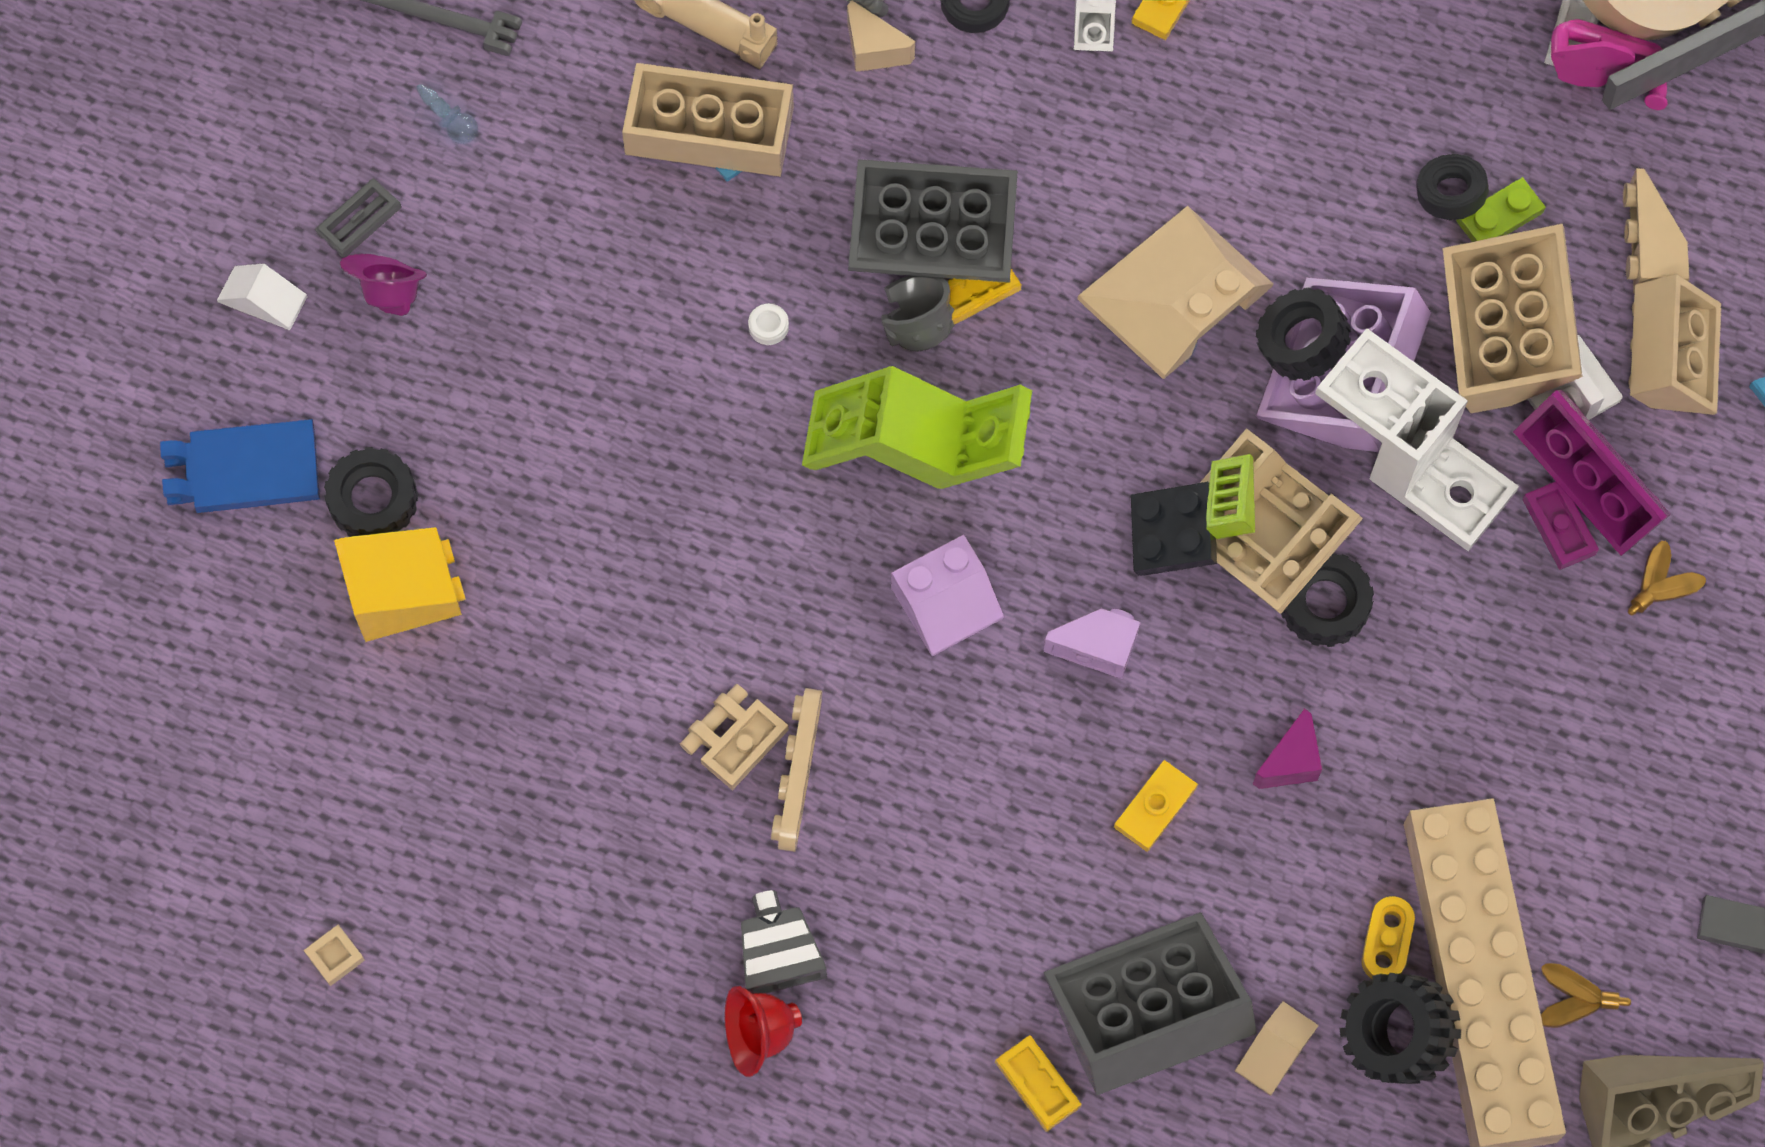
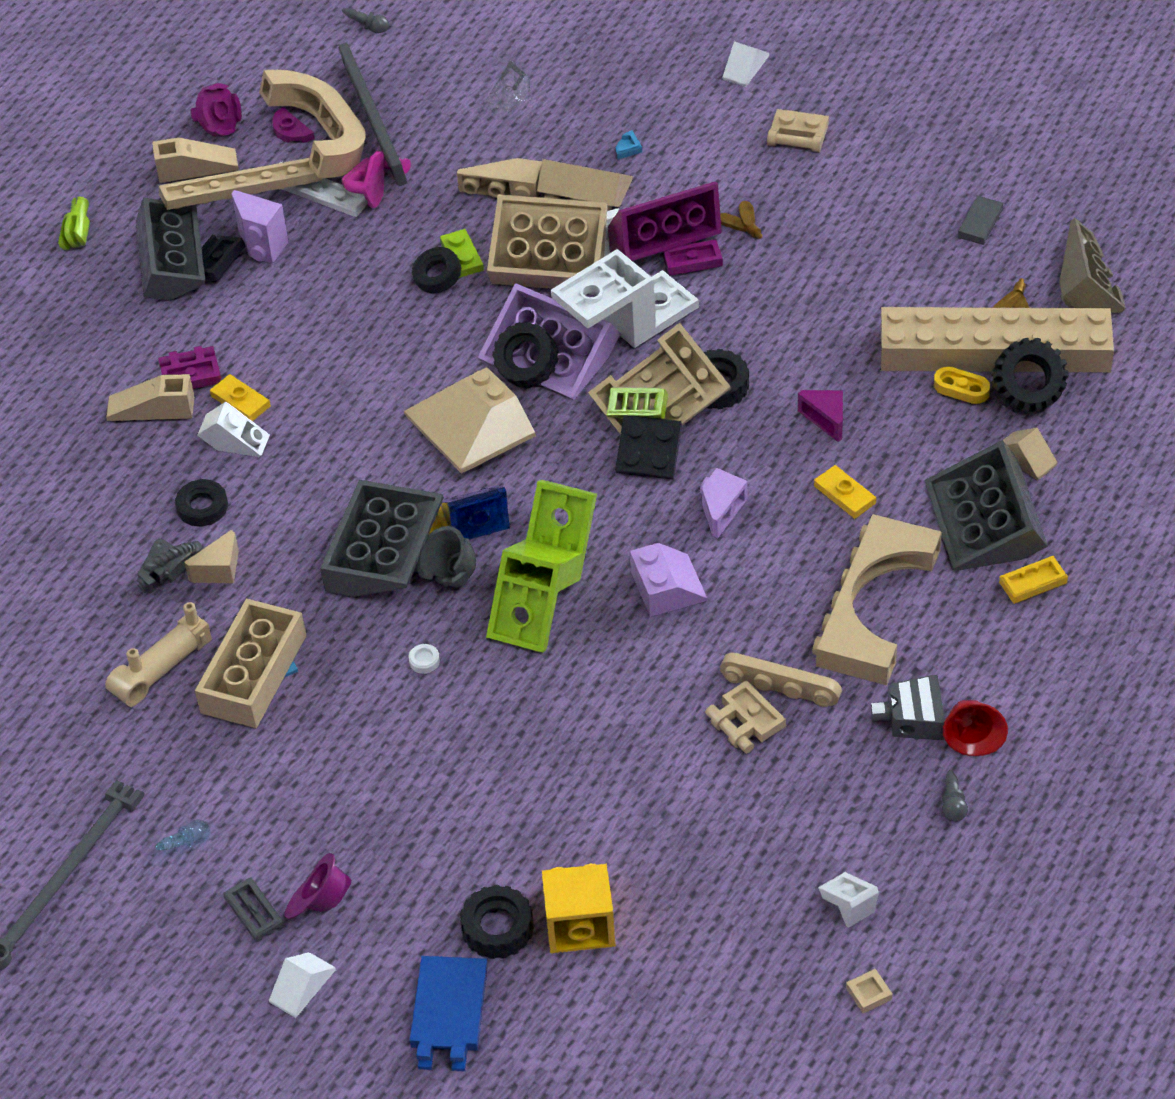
camera: 75 degrees left, 20 degrees down
(462, 905) = (852, 895): none -> white slope
(628, 1024) = (954, 802): none -> dark grey bar
(879, 841) = (884, 548): none -> tan arch
(1010, 329) = (478, 512): none -> clear blue slope

